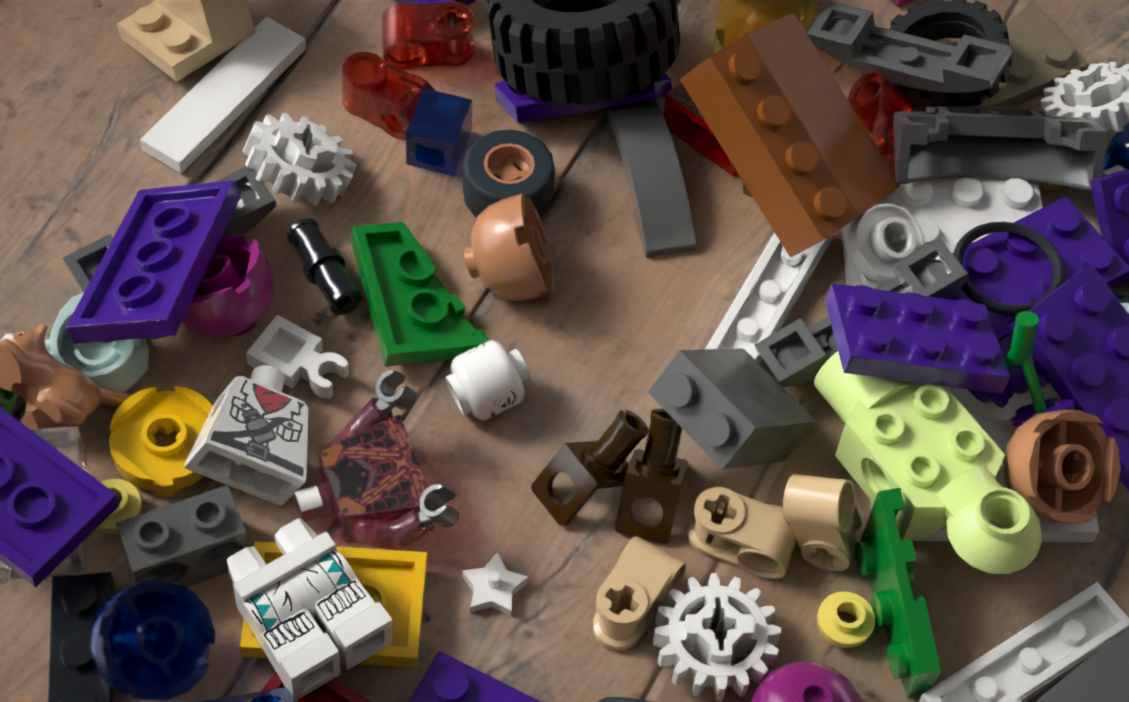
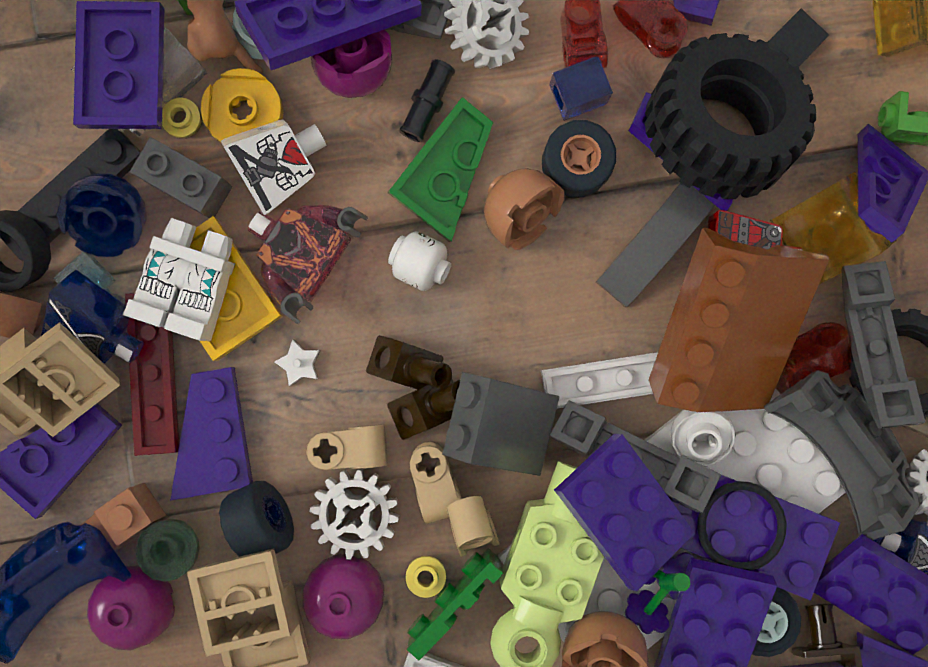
camera: 55 degrees right, 30 degrees up
(297, 356) = (350, 133): white plate -> none

